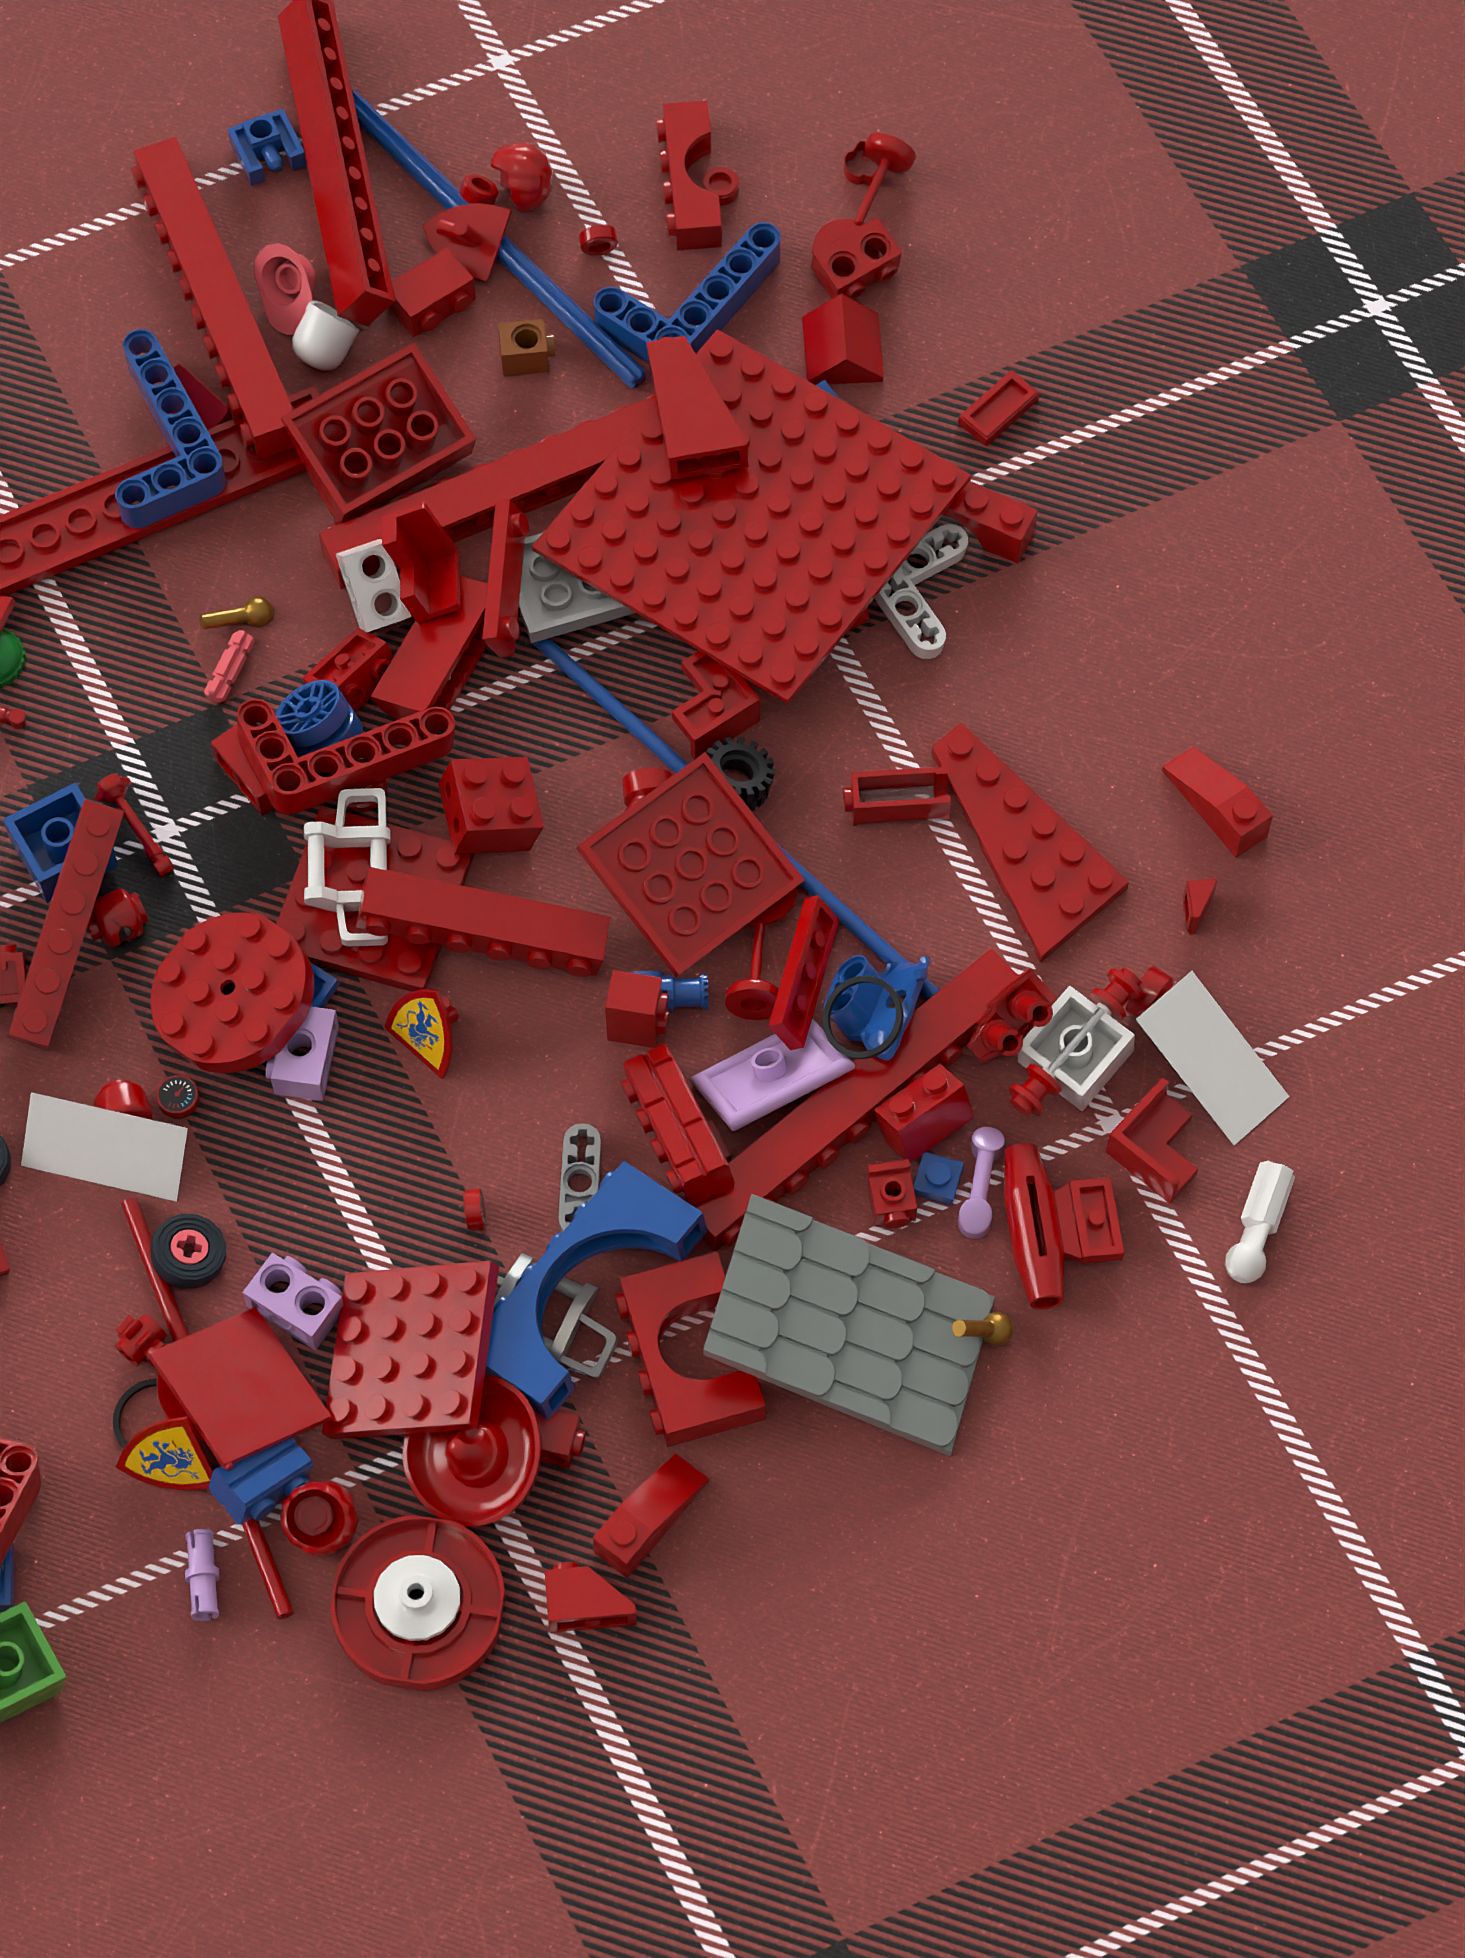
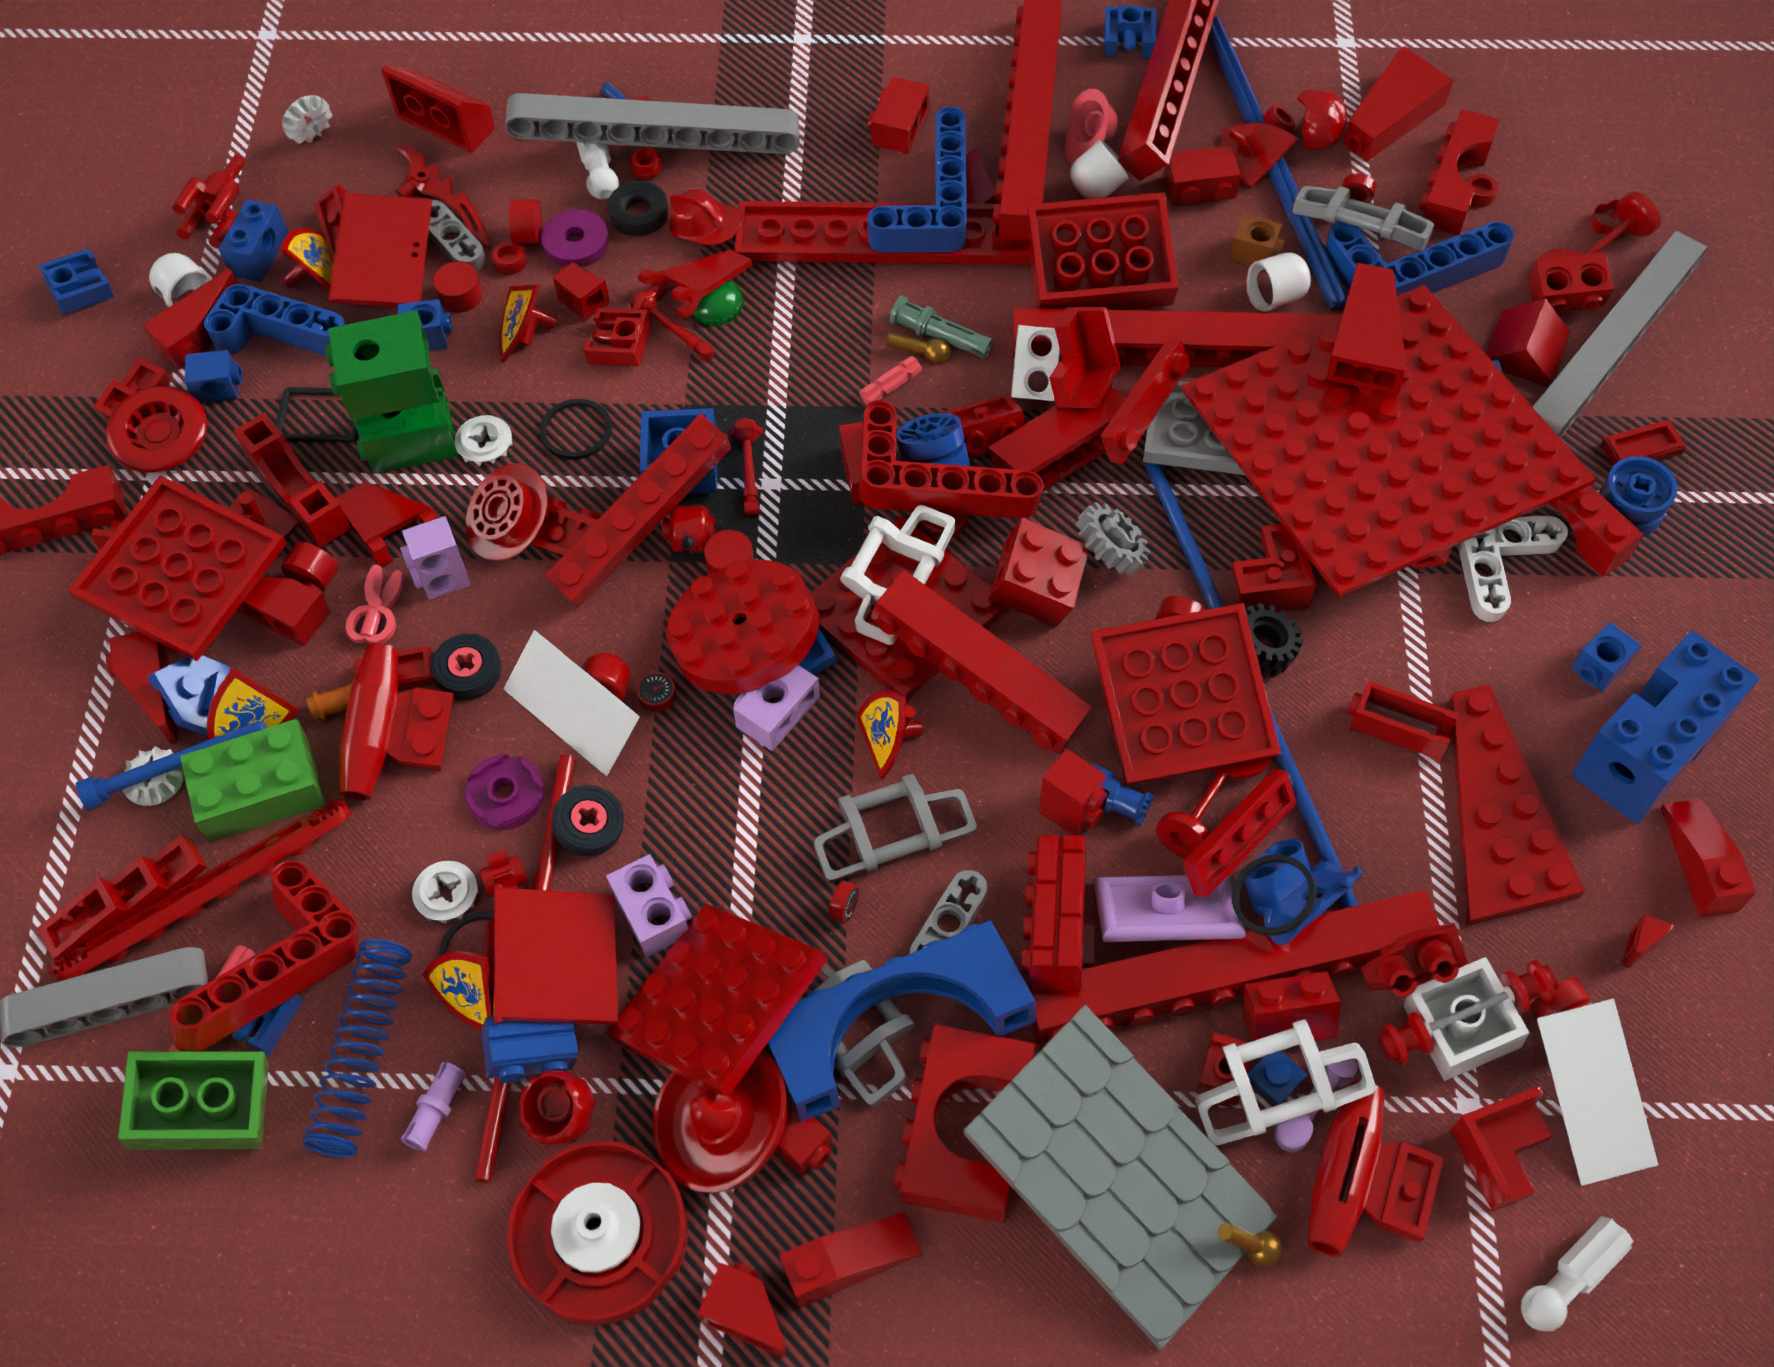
camera: 30 degrees right, 5 degrees down
(72, 355) = (899, 114): none -> red brick
(86, 1365) = (427, 890): none -> white gear
(89, 1286) = (509, 811): none -> magenta tile
(129, 1643) = (328, 1142): none -> blue piece
(167, 924) = (725, 548): none -> red piece
(234, 585) = (926, 323): none -> sand green pin
(476, 1158) = (920, 802): none -> light grey bar
(543, 737) = (1113, 538): none -> light grey gear
(577, 375) = (1288, 277): none -> white helmet
(589, 284) = (1364, 215): none -> light grey bar
(592, 117) = (1396, 104): none -> red slope
(925, 296) = (1619, 332): none -> light grey beam
(967, 1147) = (1322, 1099): none -> white bar
(1016, 465) = (1640, 491): none -> blue wheel
(1059, 634) = (1612, 646): none -> blue brick
(1133, 696) = (1664, 727): none -> blue piece

